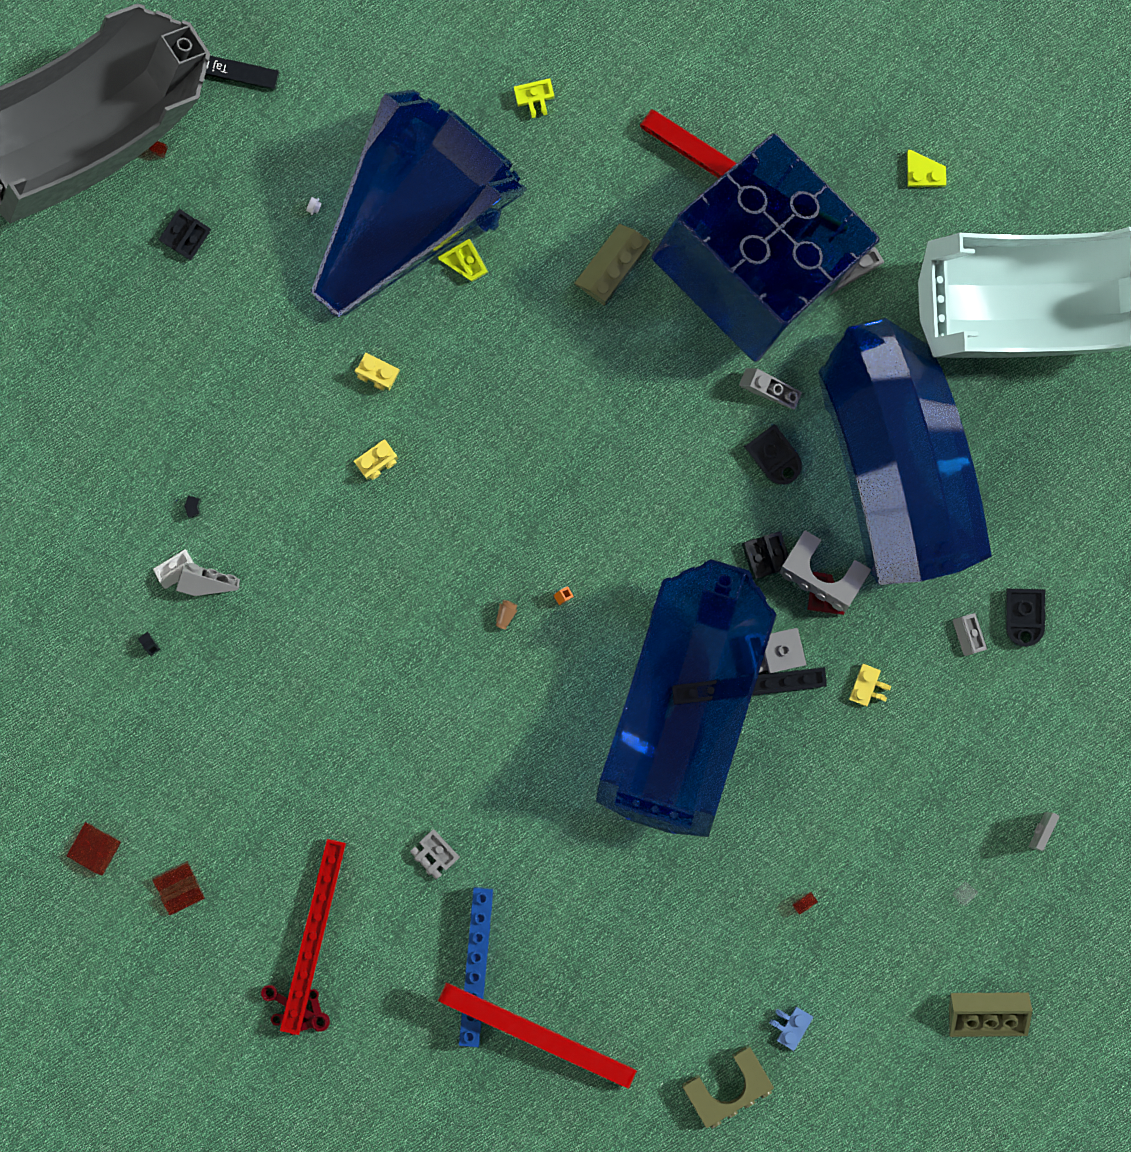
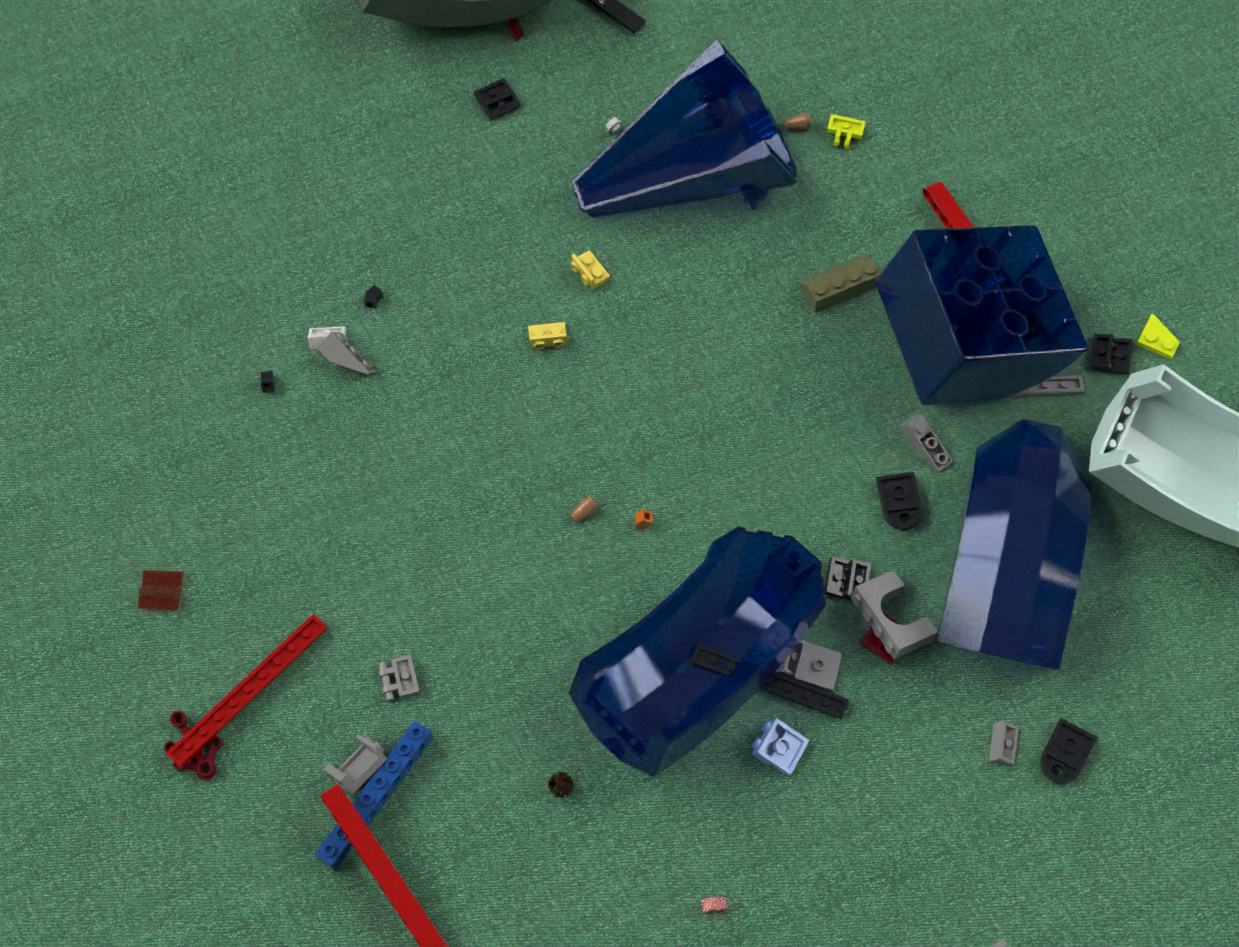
camera: 30 degrees right, 20 degrees down
(93, 849) = (112, 520): clear red slope -> none
(448, 951) = (358, 765): none -> light grey panel
(465, 260) = (714, 221): neon yellow wing -> none
(487, 110) = (799, 122): none -> medium nougat cone
(625, 872) = (560, 784): none -> dark brown gear
(788, 740) = (779, 746): none -> light blue plate
(865, 684) = (879, 737): light yellow hinge -> none
(891, 210) = (1111, 354): none -> black slope

